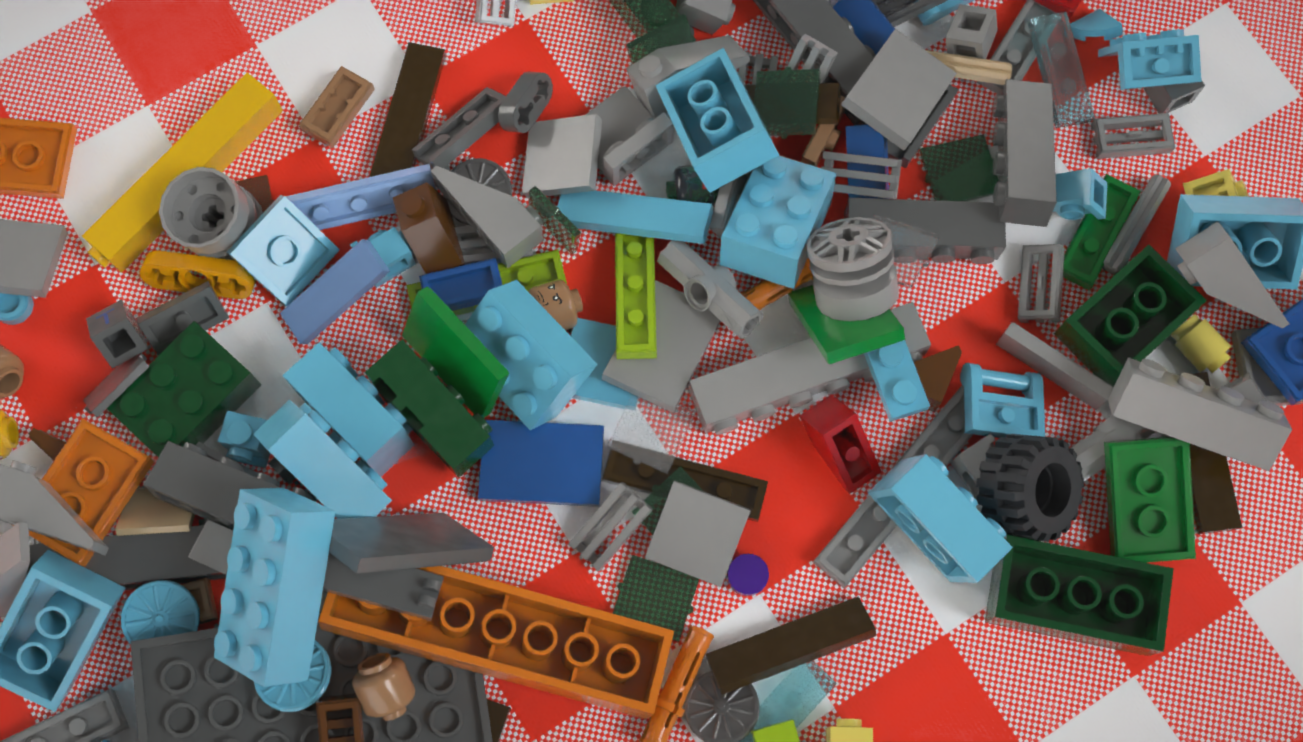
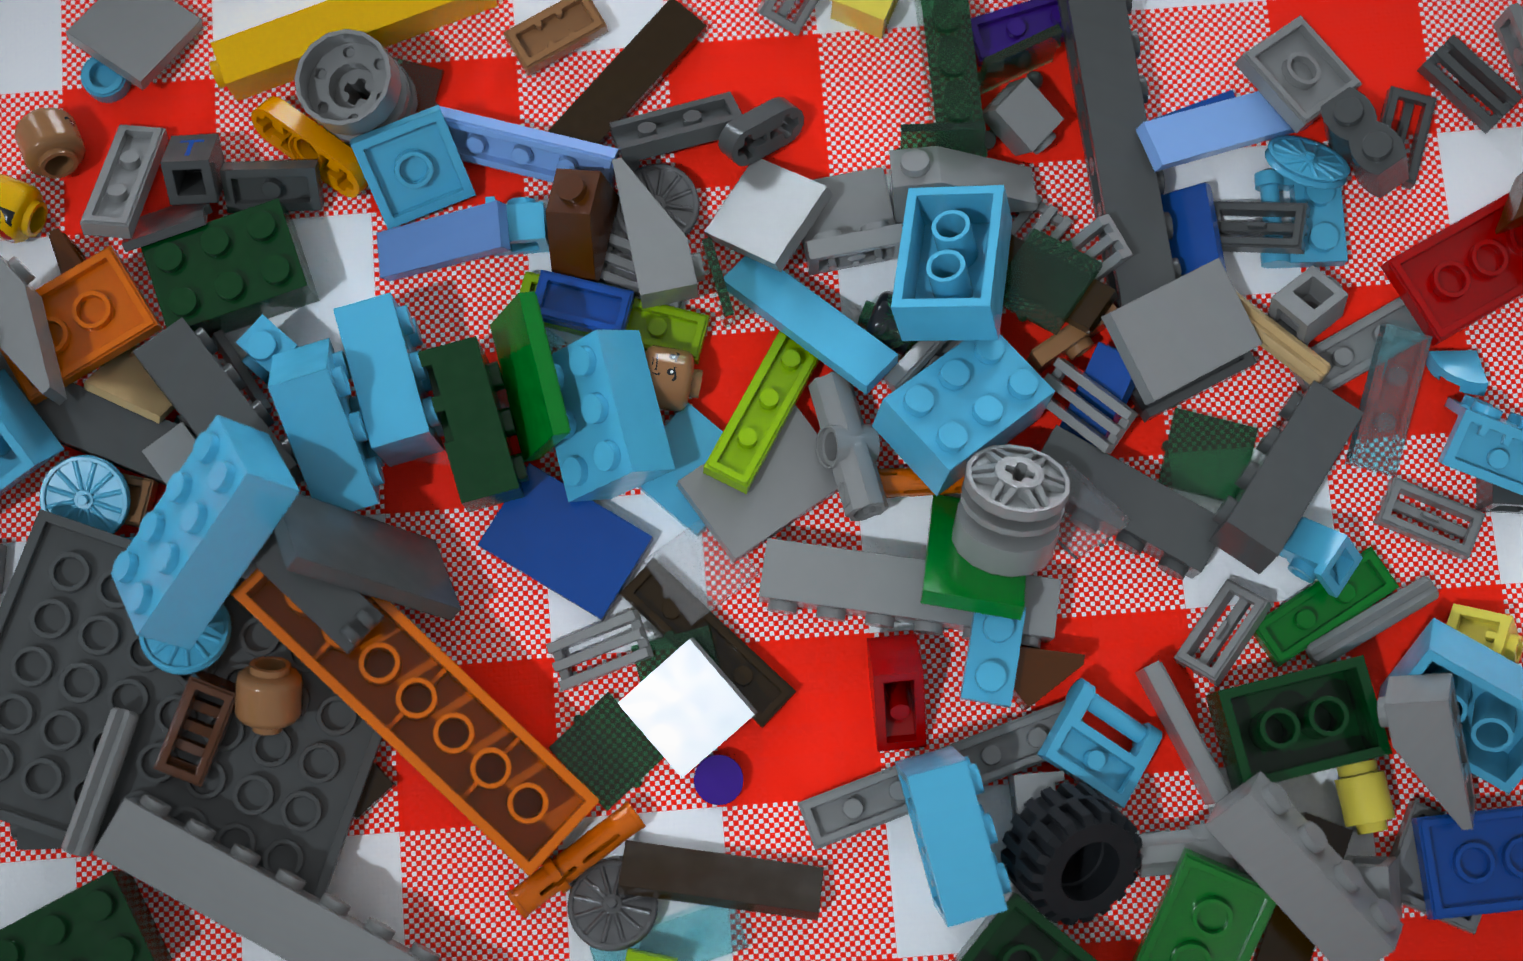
camera: 30 degrees right, 5 degrees up
(67, 369) = (124, 182): none -> light grey tile

